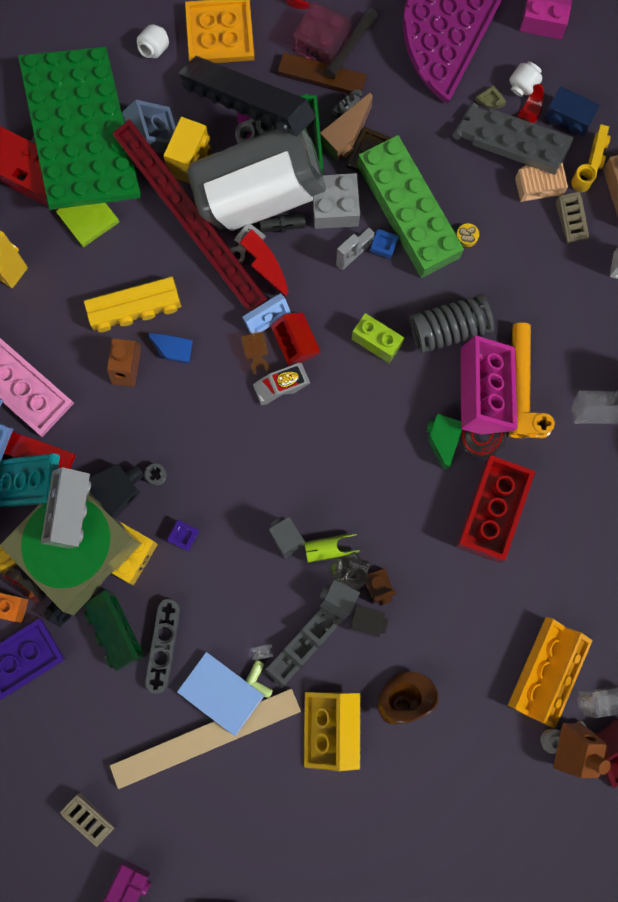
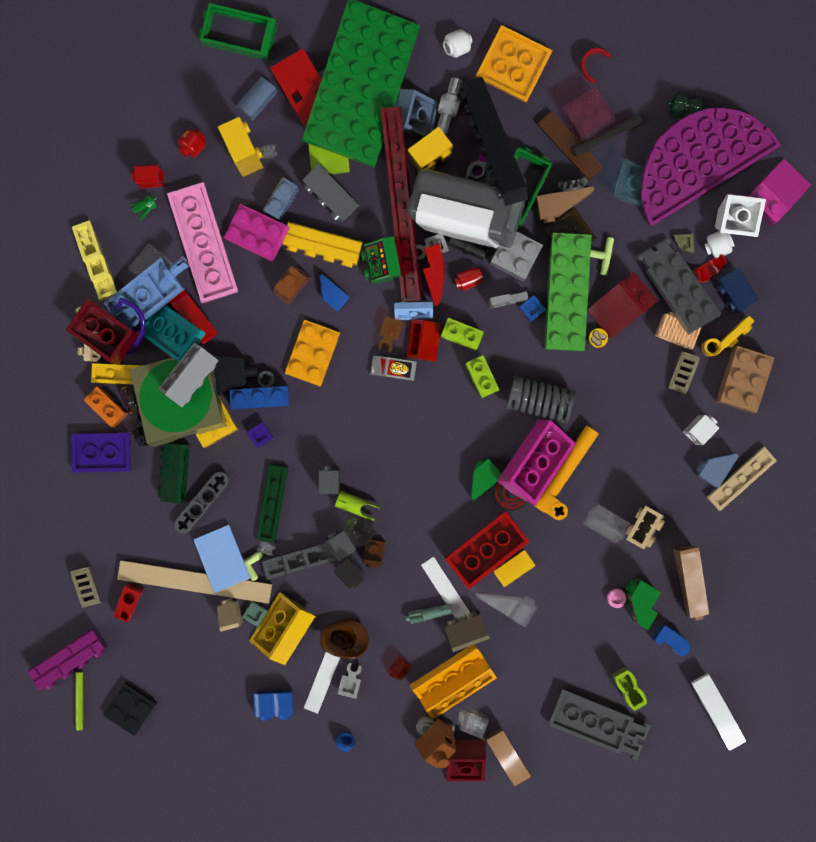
camera: 30 degrees right, 10 degrees up
(25, 246) = (268, 151): none -> clear bush
(57, 330) = (256, 232): none -> dark pink plate
(64, 284) = (281, 199): none -> sand blue brick
(110, 249) = (330, 193): none -> dark grey brick
(145, 807) = (128, 602): none -> red leg
(159, 496) = (259, 397): none -> blue brick
(179, 97) = (449, 104): none -> light grey axle
(188, 419) = (312, 353): none -> light orange plate
(203, 282) = (381, 260): none -> green piece
(239, 601) = (272, 503): none -> dark green tile
(265, 750) = (229, 614): none -> tan slope
(292, 732) = (254, 613): none -> sand green tile
(302, 252) = (468, 279): none -> red brick
(330, 308) = (462, 334): none -> lime brick
(374, 822) = (273, 703): none -> blue brick
(402, 74) = (628, 183): none -> clear light blue slope
(411, 763) = (321, 683): none -> white sticker
(423, 154) = (606, 255): none -> yellowish green piece
(442, 747) = (349, 684): none -> light grey plate
(471, 187) = (622, 305): none -> dark red slope
(477, 814) = (345, 741): none -> blue tile
(478, 615) = (428, 613): none -> sand green piece
(480, 580) = (445, 588): none -> white sticker
(483, 695) = (399, 668): none -> clear red slope
(528, 37) = (740, 215): none -> white slope
(530, 608) = (466, 631): none -> dark tan slope
(535, 513) = (514, 568): none -> yellow tile
(564, 552) = (513, 606): none -> clear slope

